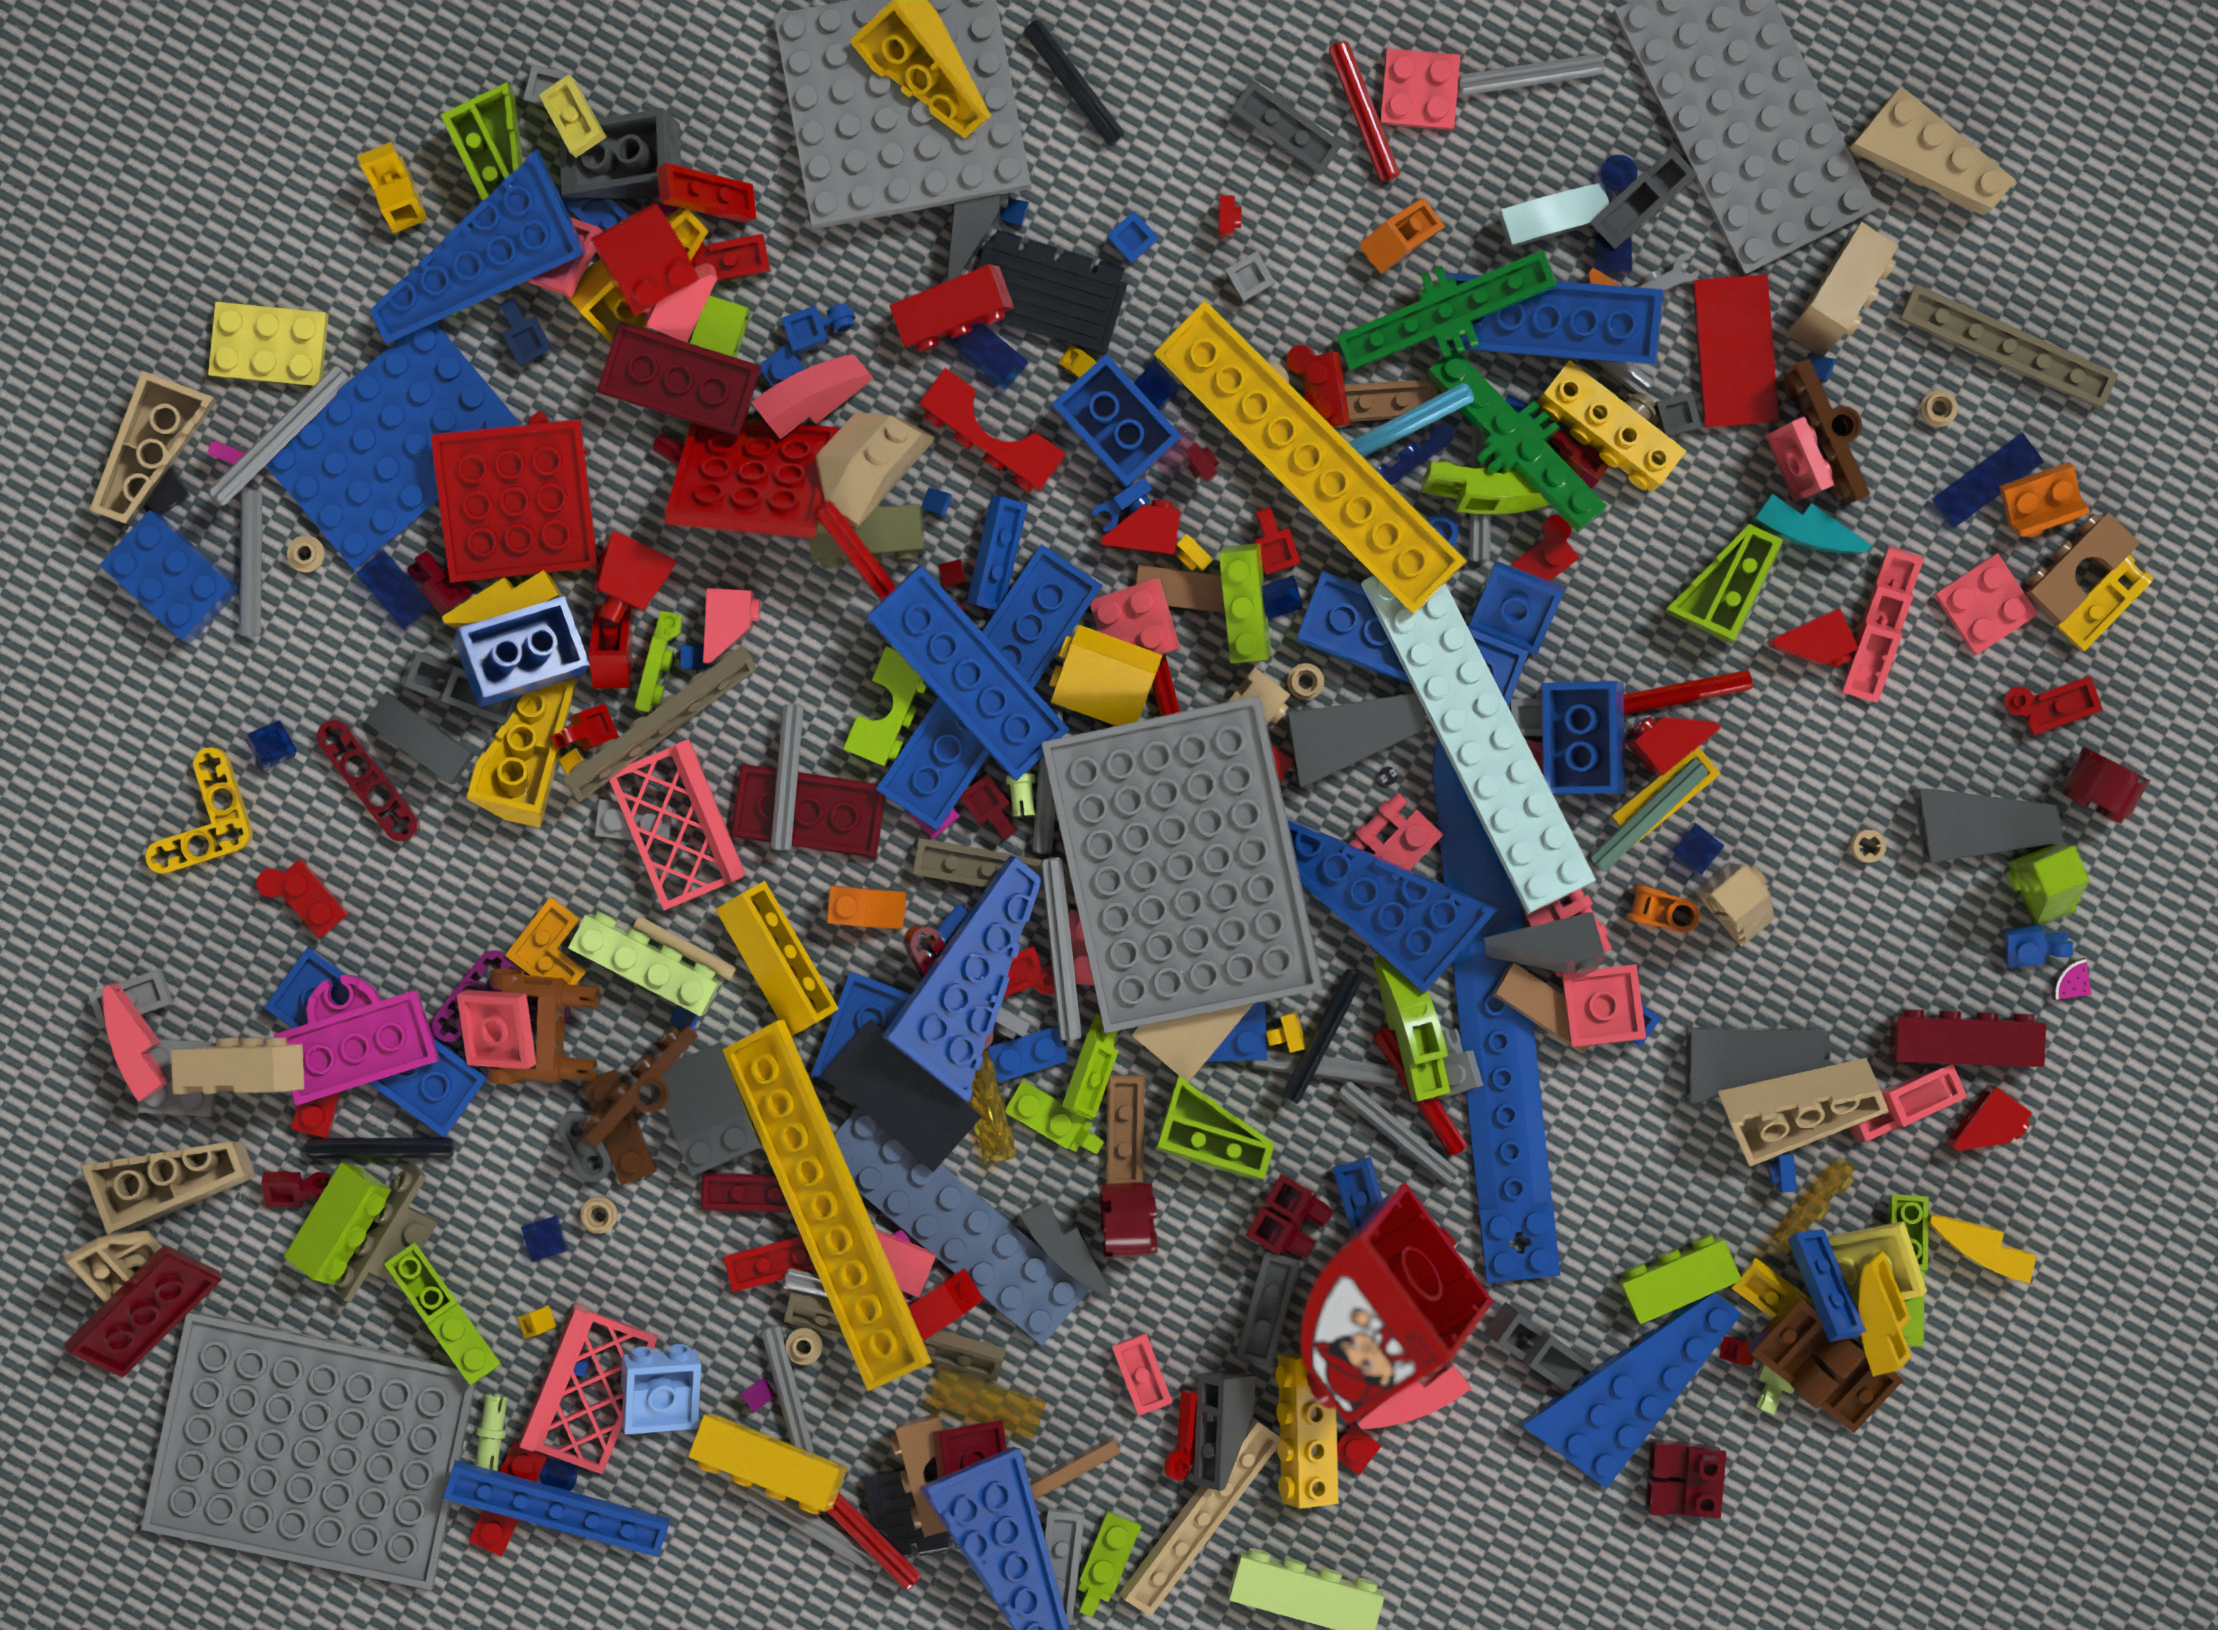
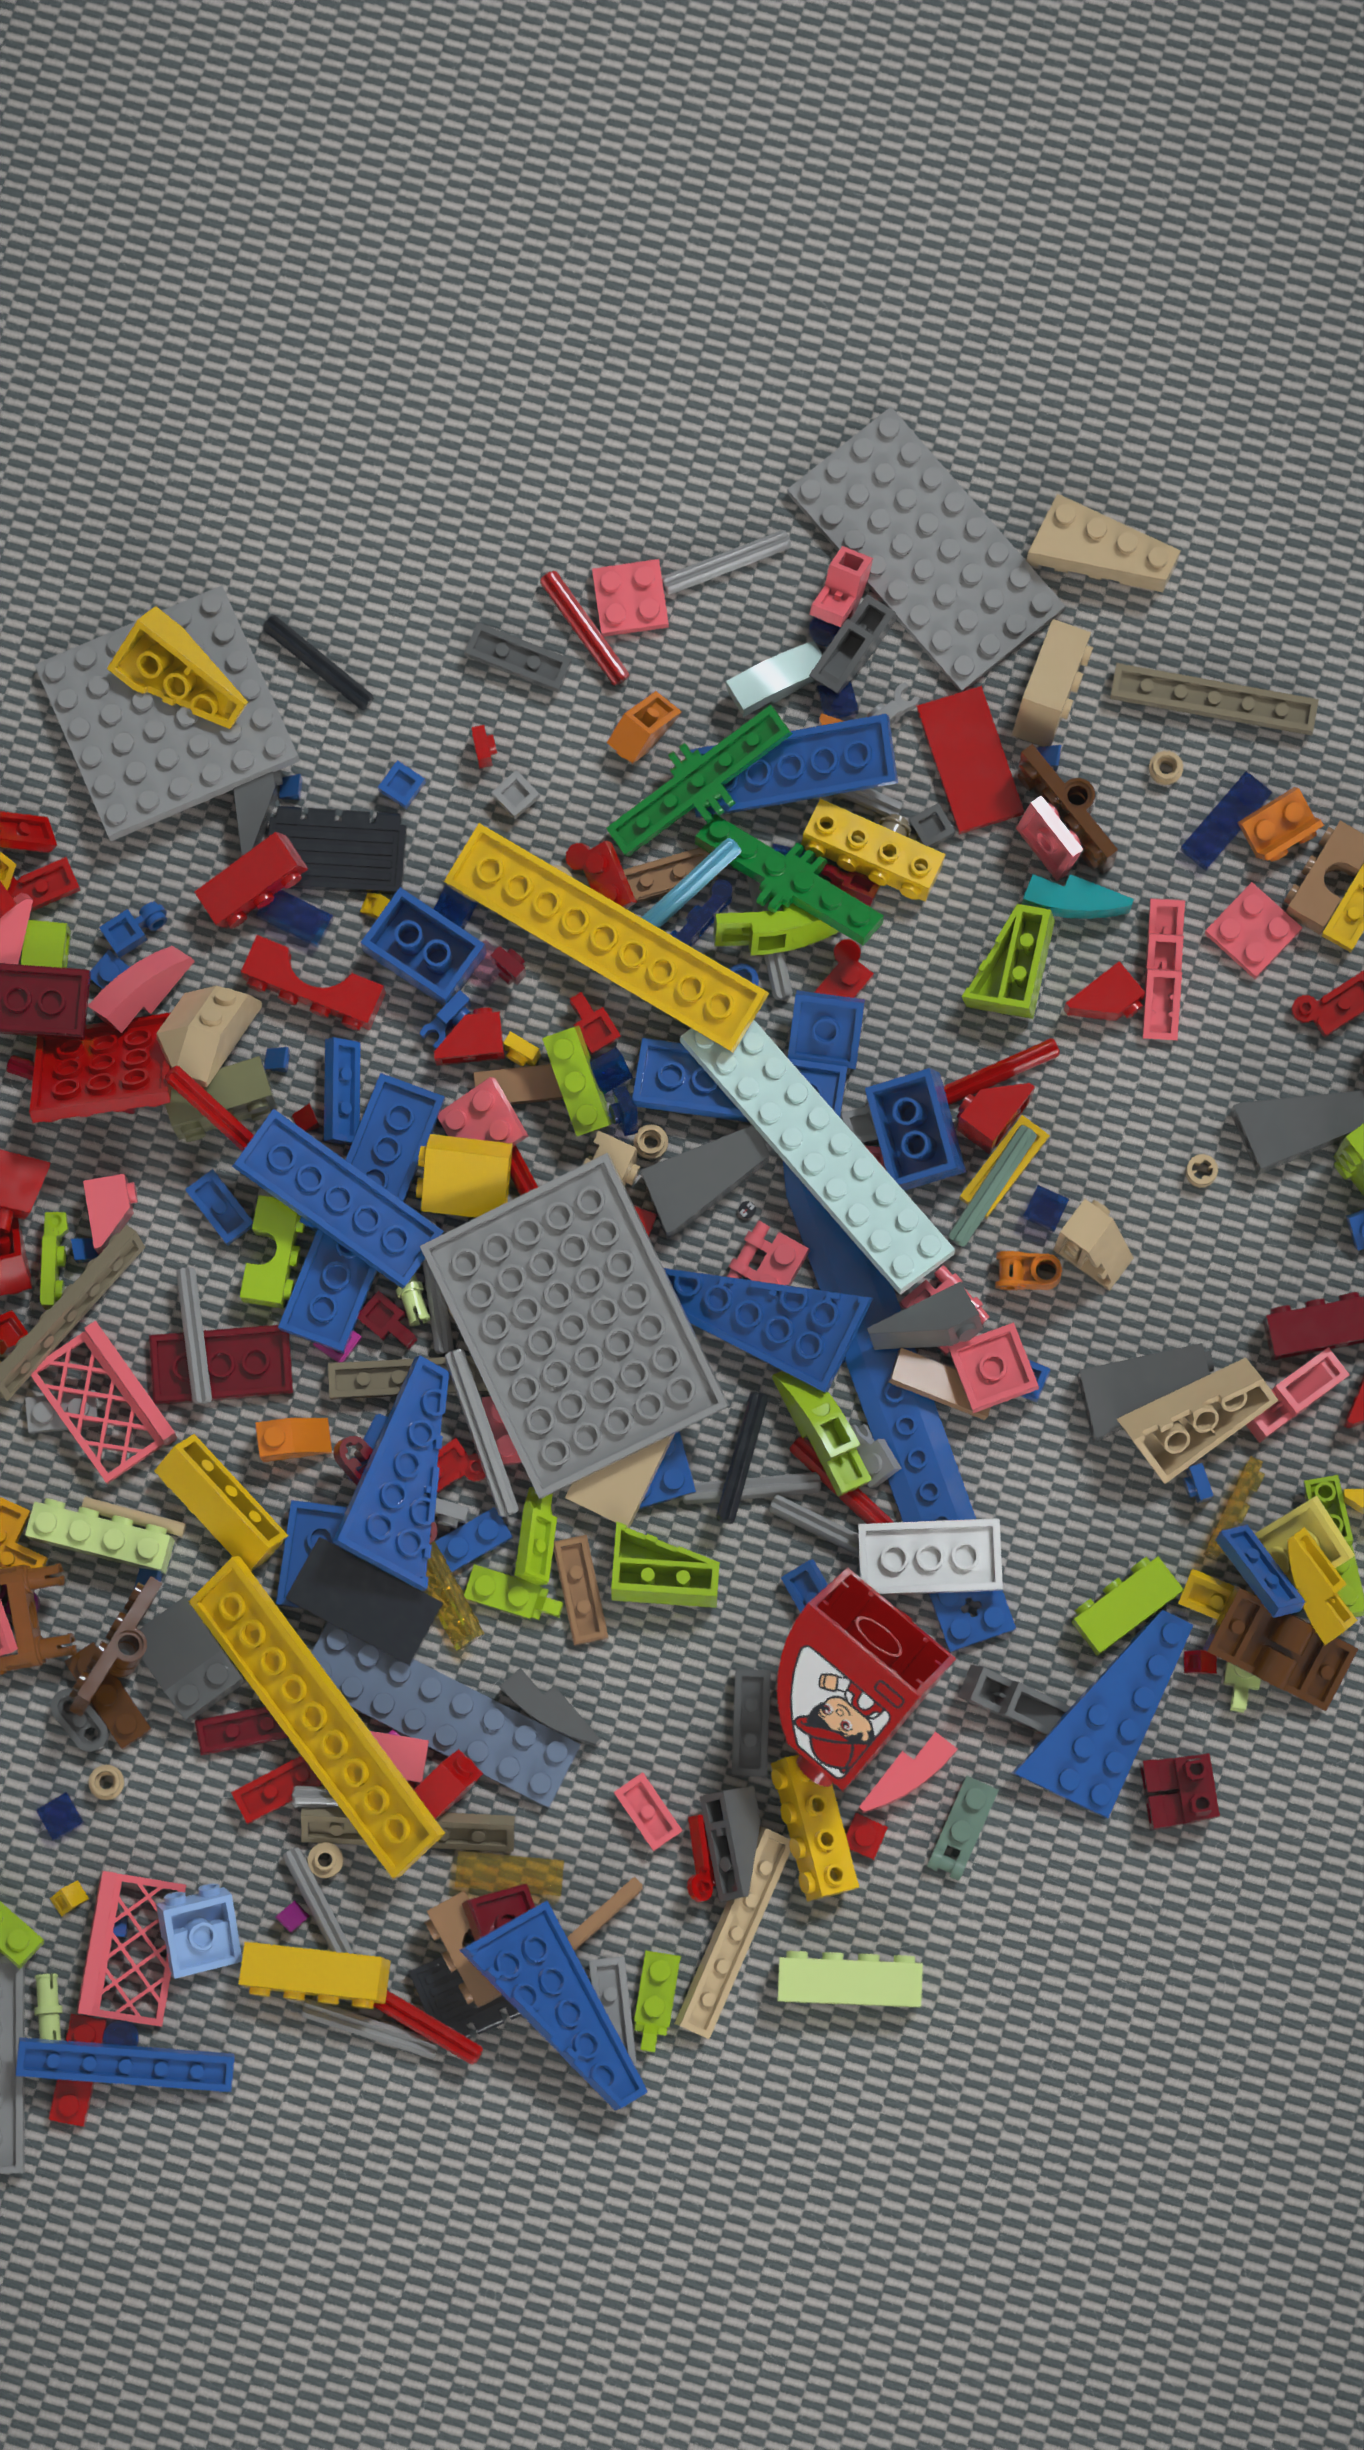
camera: 10 degrees left, 10 degrees down
(843, 646) = (220, 1207): none -> blue plate
(1128, 1219) = (599, 1667): dark red brick -> none
(1281, 1223) = (749, 1630): dark red hips -> none
(1285, 645) = (624, 1111): none -> clear blue plate
(1290, 1032) = (709, 1462): yellow tile -> none
(1457, 1462) = (963, 1826): none -> sand green plate
(1492, 1186) = (931, 1556): none -> white plate
(1647, 134) = (843, 587): none -> coral brick

